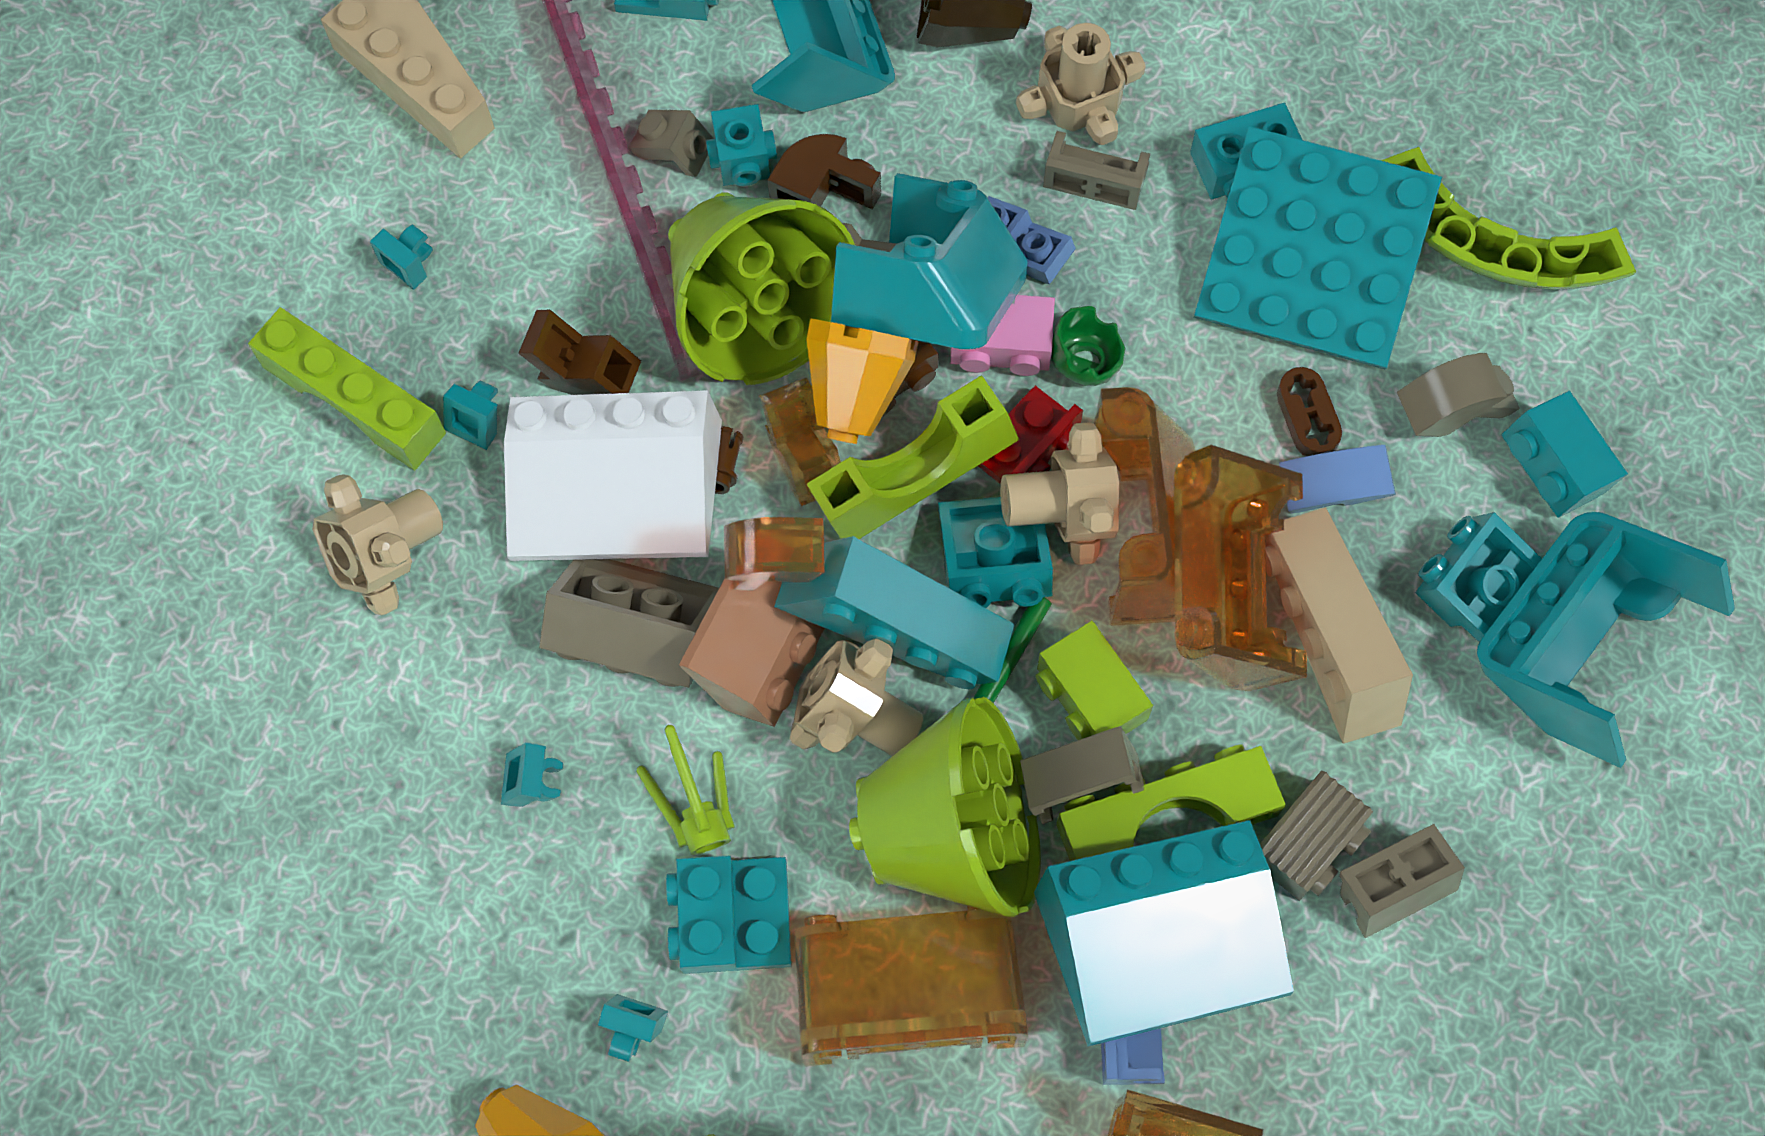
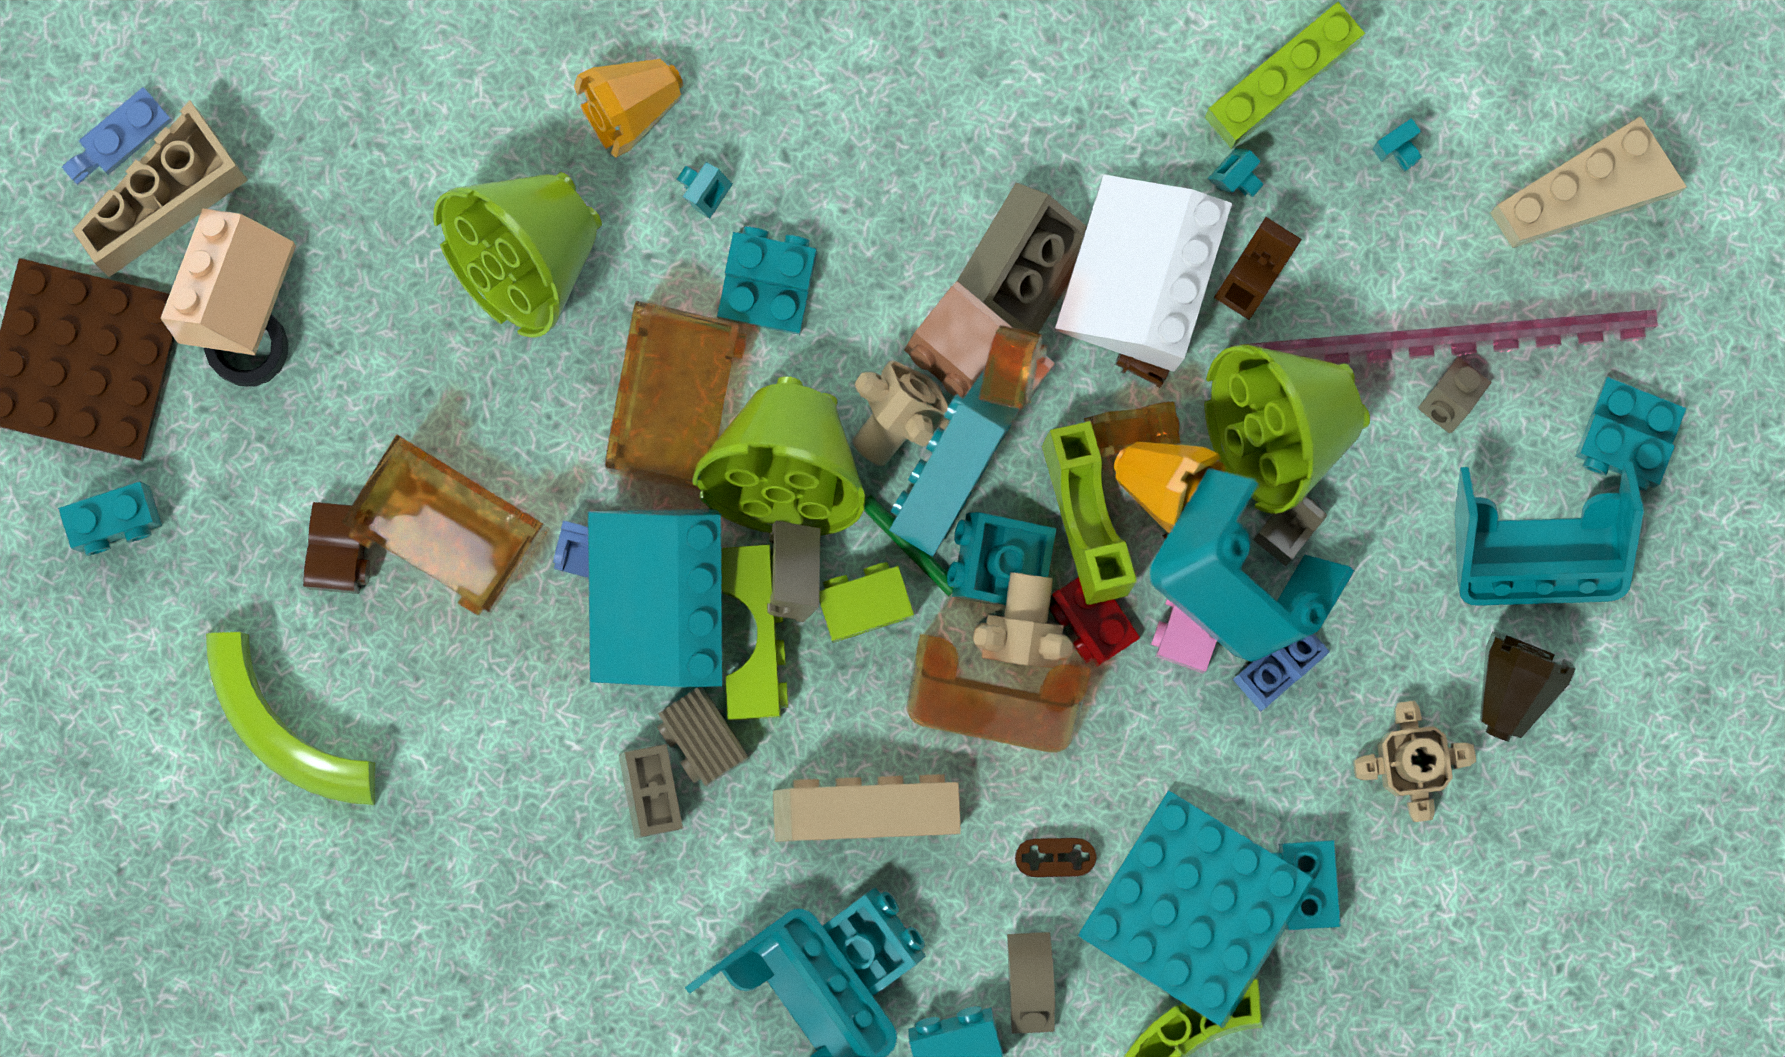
camera: 105 degrees right, 15 degrees up
(371, 540) = (1138, 67): tan piece -> none
(524, 776) = (918, 150): teal tile -> none
(702, 824) = (841, 274): lime plant -> none
(741, 146) = (1440, 443): teal brick -> none
(820, 166) = (1390, 505): reddish brown brick -> none
(1083, 331) = (1148, 678): green hair -> none
(1095, 174) = (1328, 750): dark tan hinge -> none
(1220, 527) = (917, 726): clear orange windscreen -> none
(1342, 477) = (989, 858): medium blue slope -> none

